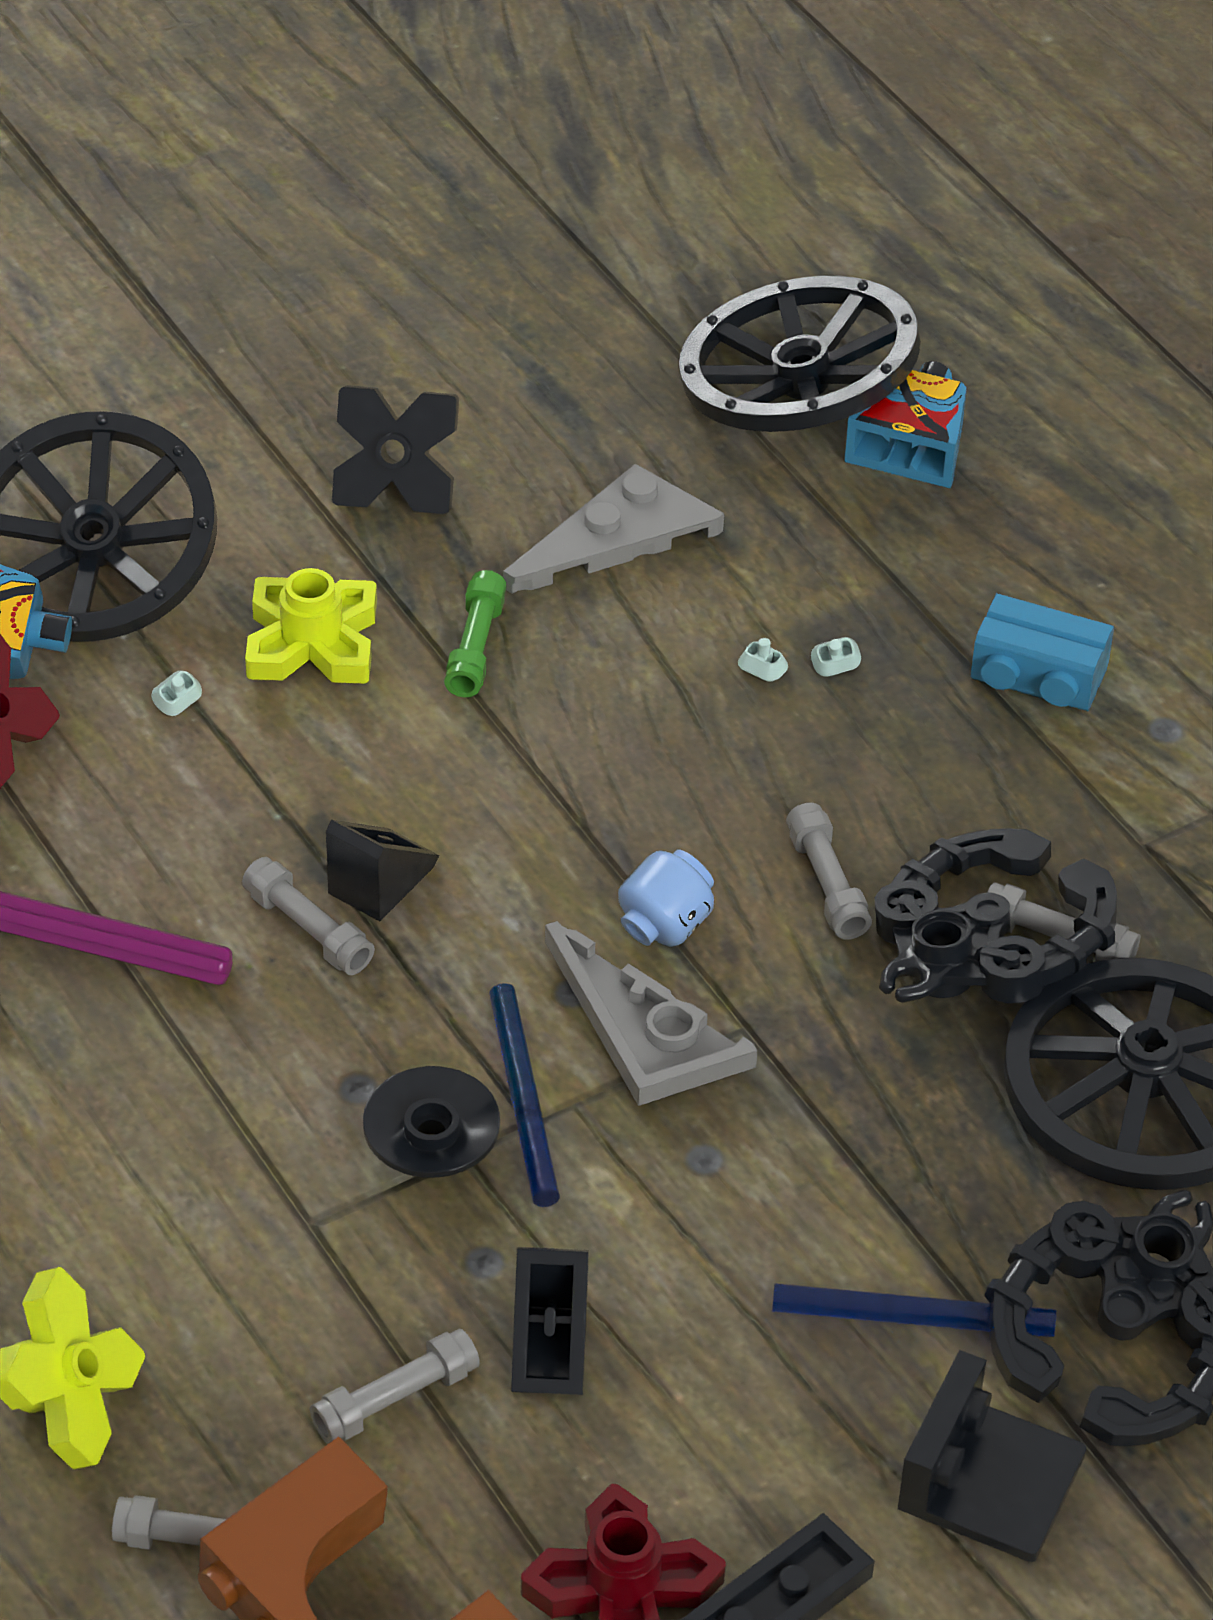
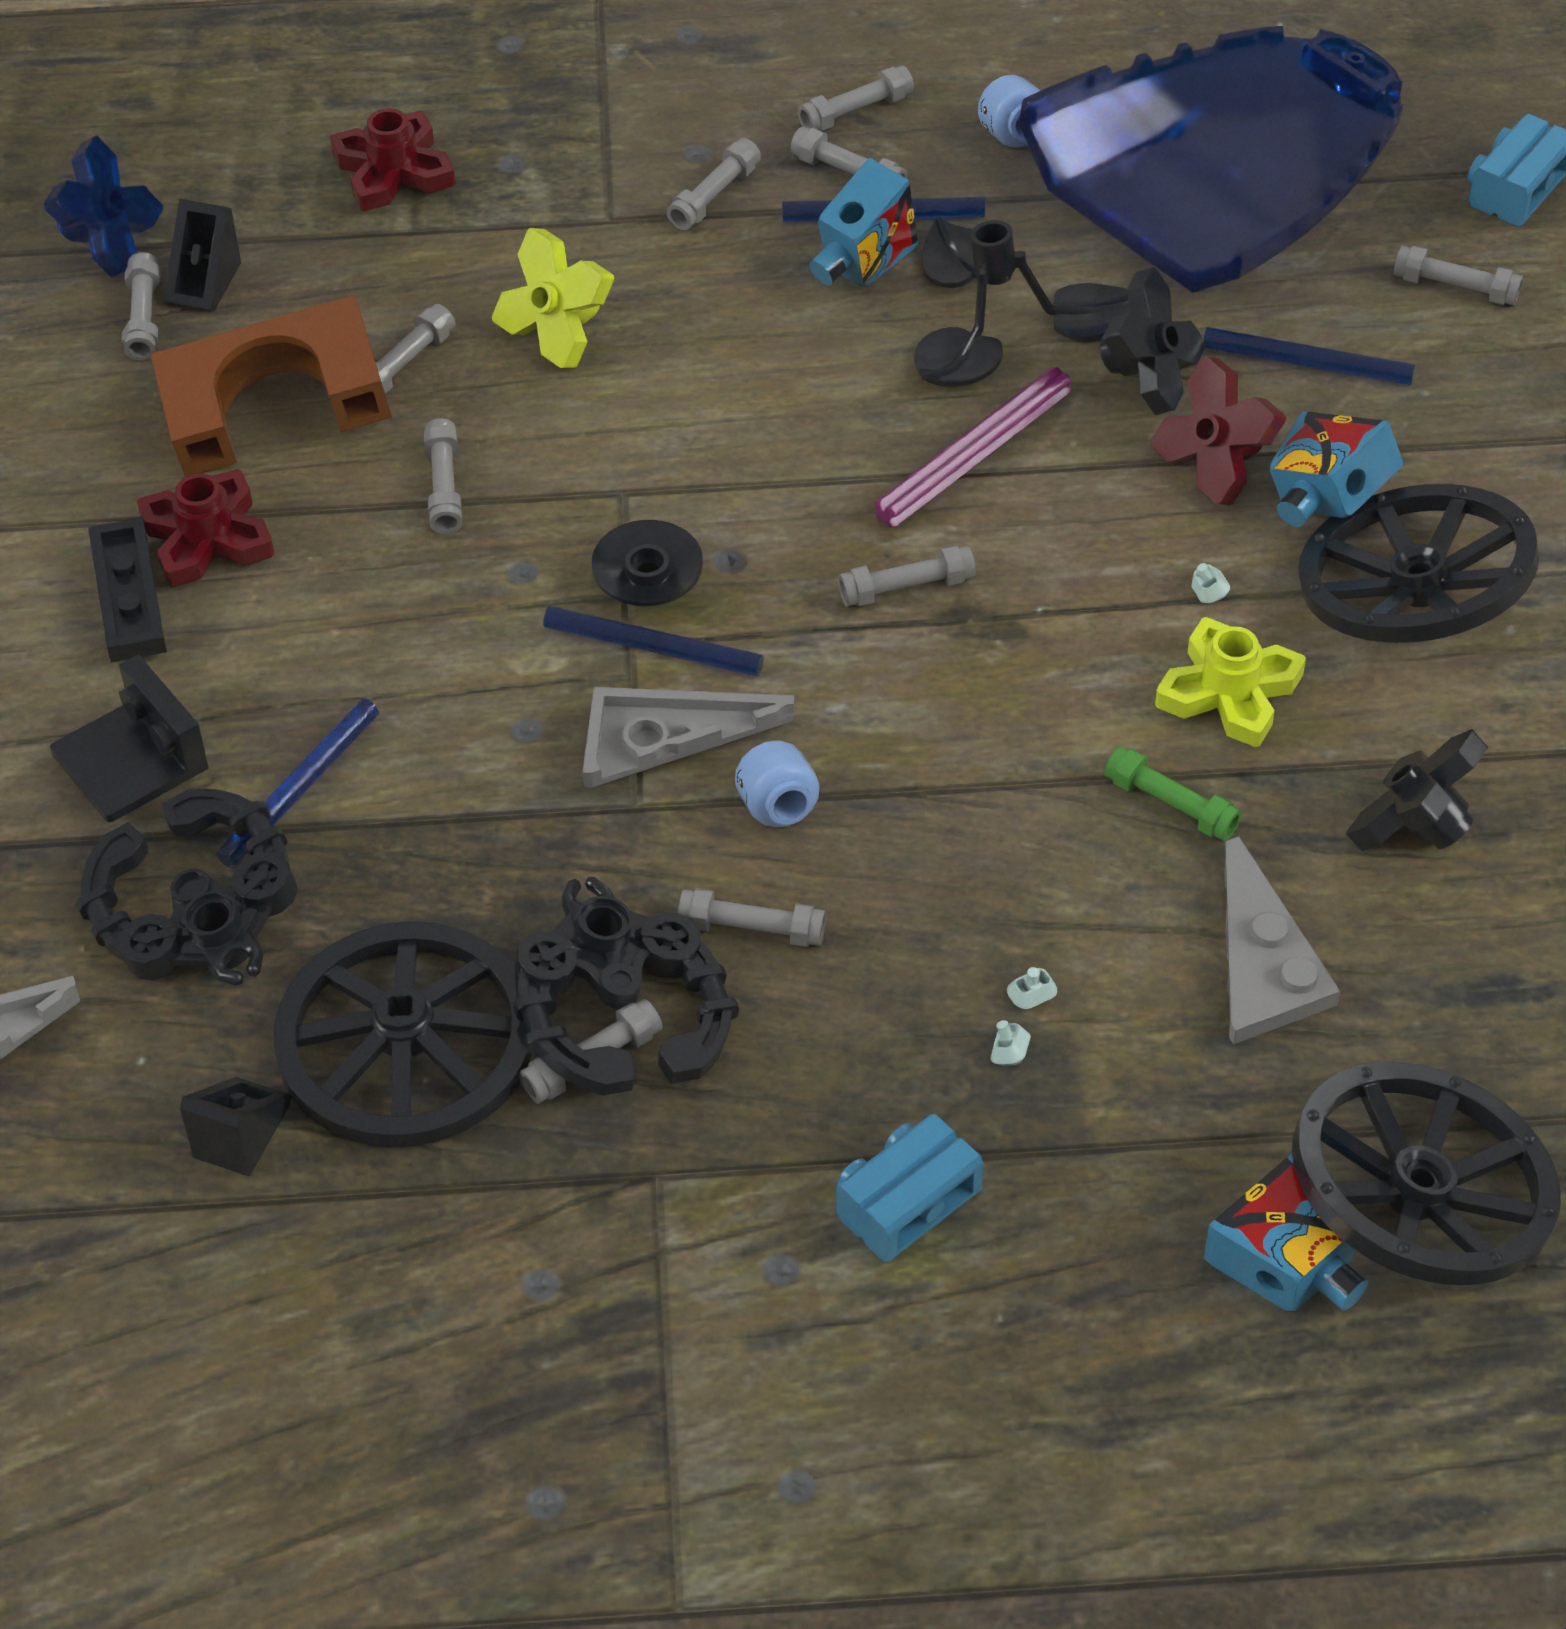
camera: 120 degrees right, 5 degrees up
(373, 866) = (929, 621): black slope -> none
(550, 1320) = (429, 564): black slope -> none

